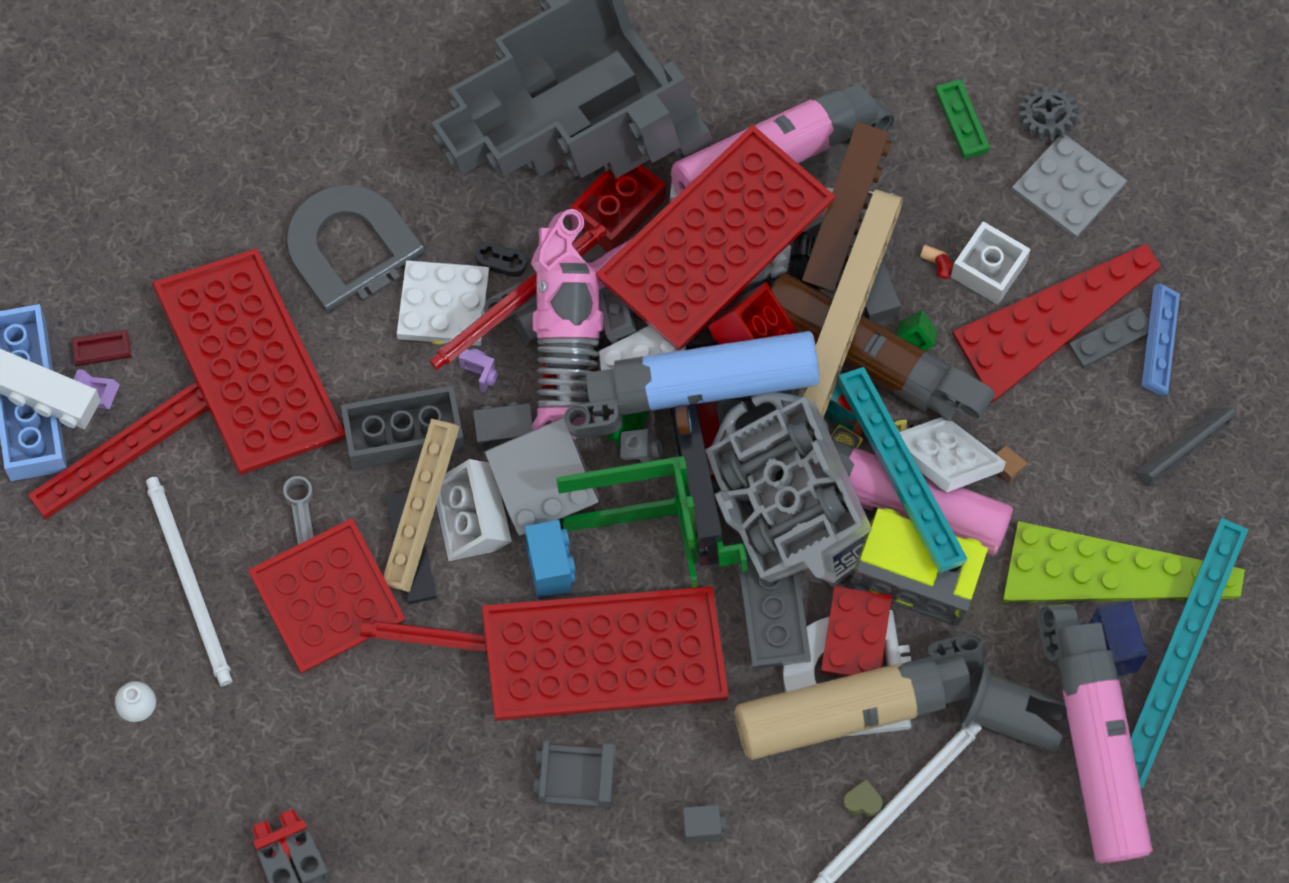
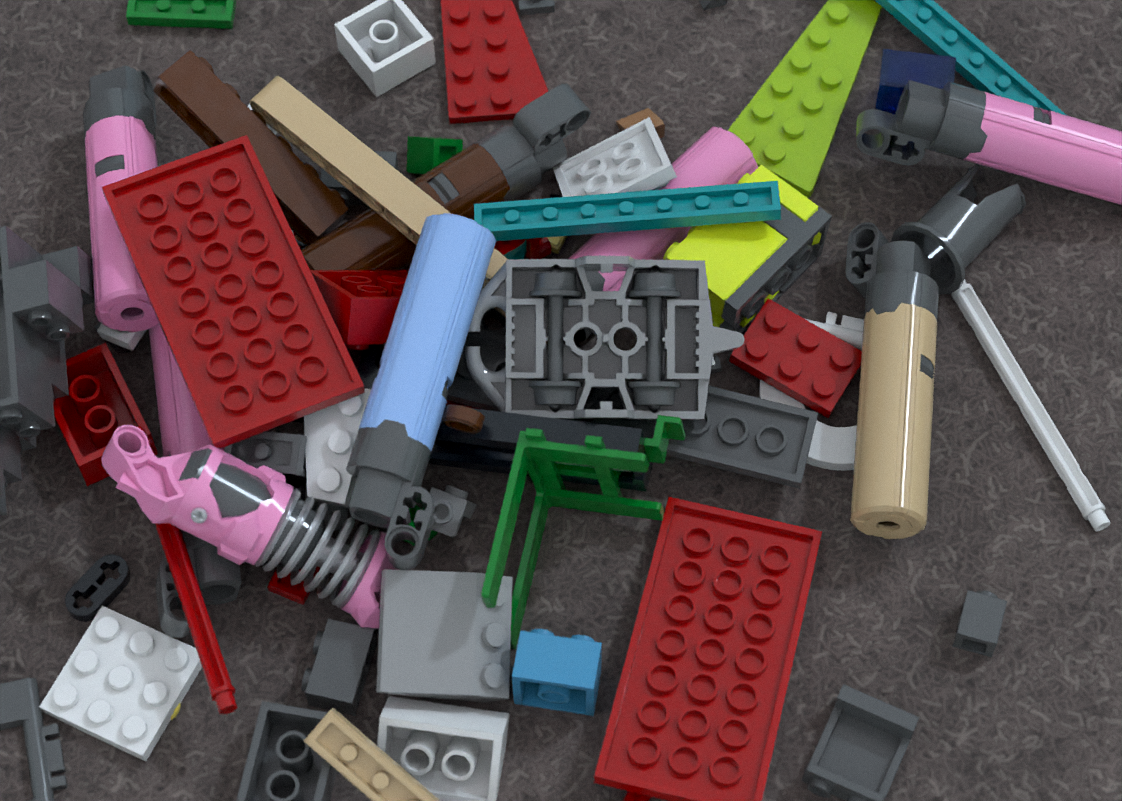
camera: 65 degrees left, 5 degrees down
(479, 363) = (245, 659): lavender bracket -> none
(863, 800) = (1006, 432): olive tile -> none
(940, 258) = (348, 97): arm -> none

